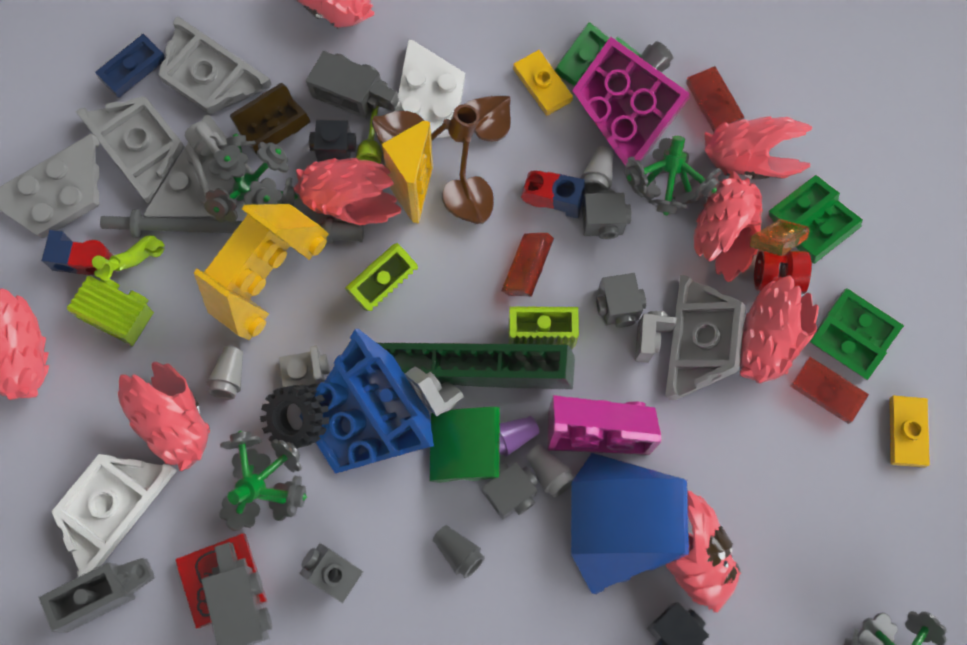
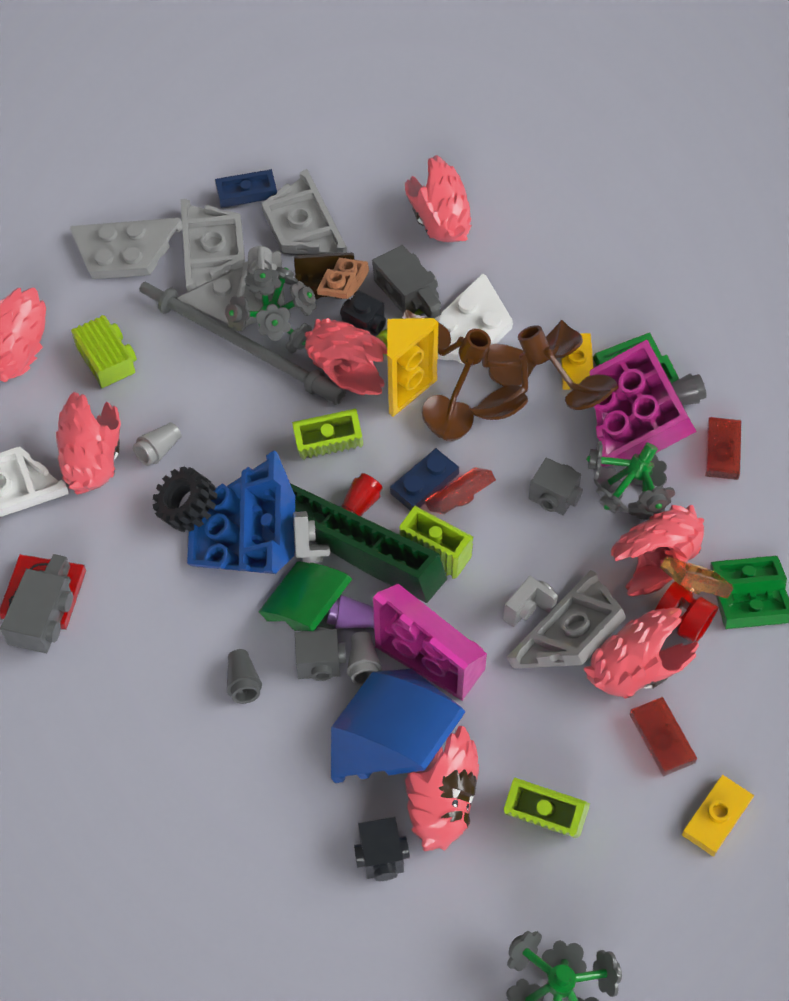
camera: 35 degrees right, 15 degrees down
(70, 256) = (104, 300): leg -> none
(132, 257) = (150, 323): lime arm -> none
(248, 259) = (229, 354): yellow wedge -> none
(252, 471) = (123, 524): dark grey plant -> none
(294, 115) = (344, 278): none -> nougat slope
(304, 368) = (220, 470): light grey bracket -> none
(330, 572) = (127, 641): dark grey brick -> none
(446, 319) = (362, 494): none -> red cone
(488, 270) = (424, 479): none -> dark blue plate
(519, 81) = (539, 349): none -> reddish brown plant
(554, 192) = (523, 446): leg -> none
(599, 170) = (575, 450): light grey cone -> none
(620, 300) = (520, 558): dark grey brick -> none
(746, 147) = (720, 495): coral head -> none
(789, 514) = (546, 808): none -> lime brick
(856, 333) = (724, 706): green slope -> none

